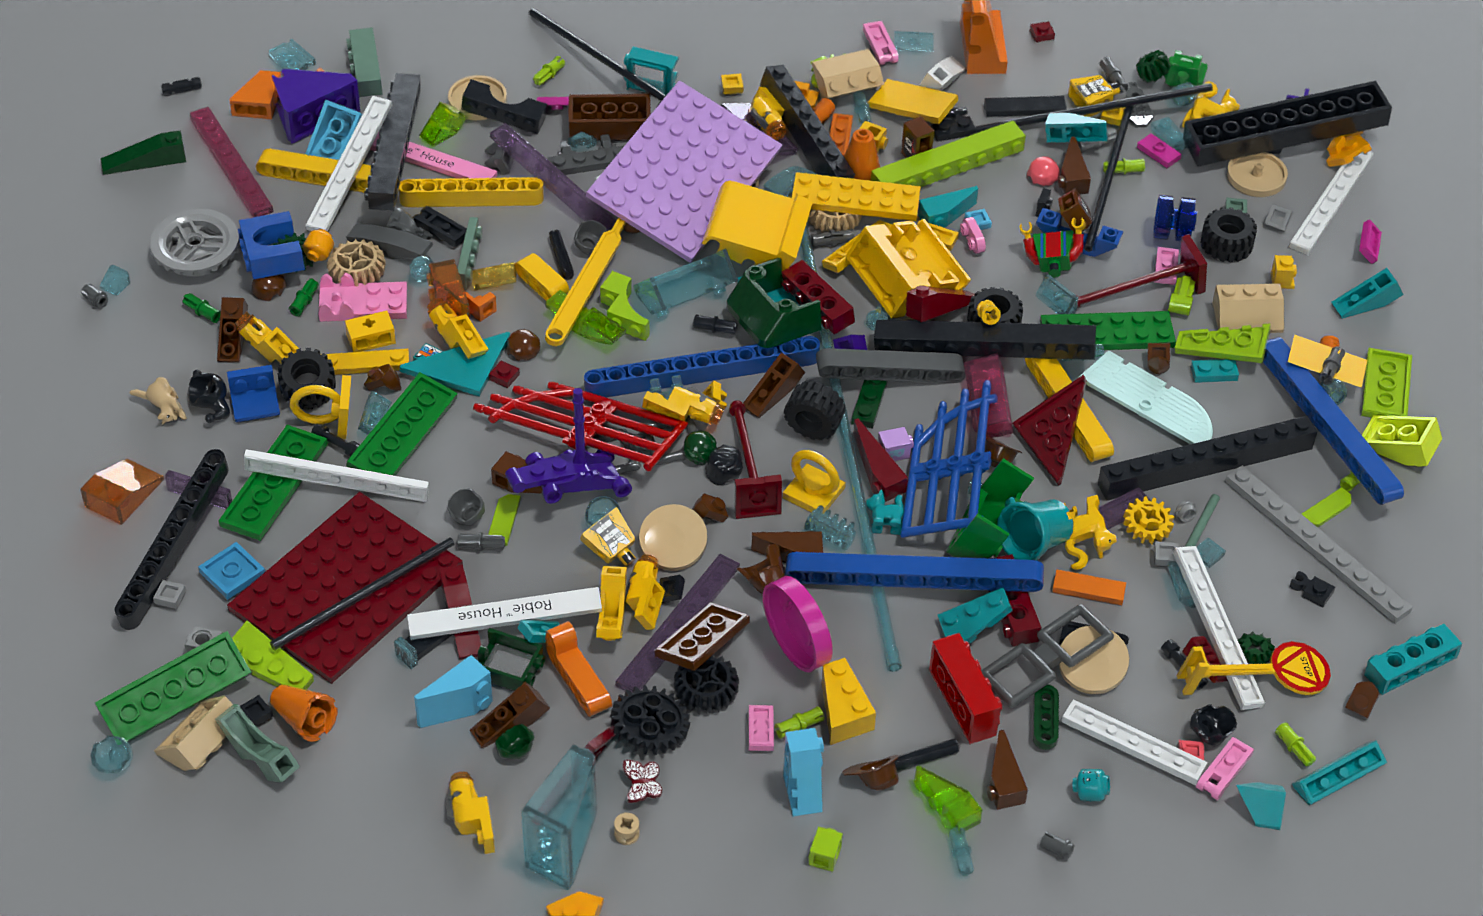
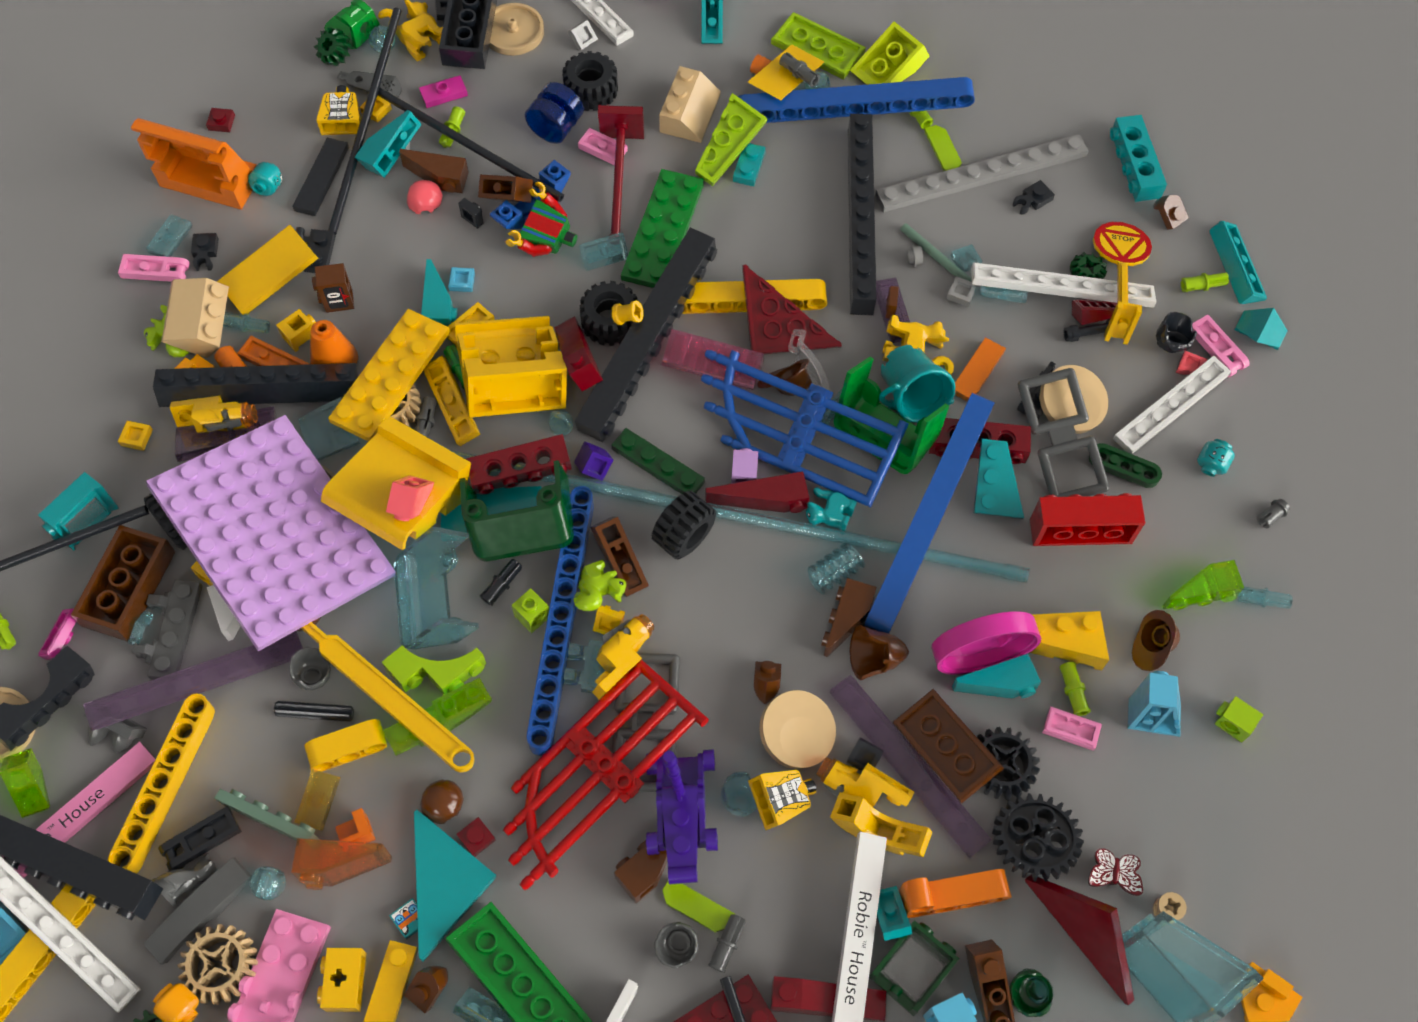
camera: 70 degrees left, 15 degrees up
(456, 330) = (396, 873): yellow plate -> none
(697, 342) = (530, 610): none -> lime brick
(699, 446) = (676, 658): dark green hair -> none
(724, 464) = (710, 642): black hair -> none
(739, 376) = (595, 584): none -> lime animal
(741, 224) = (408, 497): none -> coral slope
(755, 494) = (775, 622): dark red tile -> none
(785, 669) = (1005, 680): none -> teal slope
(811, 485) = (773, 565): yellow tile -> none
(890, 365) = (644, 433): dark grey beam -> none
(917, 64) = (203, 247): none -> black plate
(927, 754) = (1140, 585): black axle -> none
(943, 74) = (242, 229): white slope -> none
(954, 157) = (368, 271): lime brick -> none
(973, 235) = (486, 290): bright pink plate -> none
(999, 73) = (265, 178): none -> teal head
(1006, 783) = (1186, 526): reddish brown slope -> none
(1026, 450) = (809, 354): none -> clear sword
(1113, 74) = (319, 84): dark grey pin -> none
(1117, 498) = (892, 300): none -> reddish brown tile
(1149, 398) = (769, 227): light aqua door -> none
(1150, 521) = (920, 289): yellow gear -> none
(1158, 357) = (719, 200): reddish brown plate -> none
(1169, 133) = (424, 74): clear light blue plate -> none
(1182, 297) = (653, 153): lime piece -> none
(1236, 204) = (553, 62): sand green plate -> none
(1283, 271) = (655, 54): yellow brick -> none

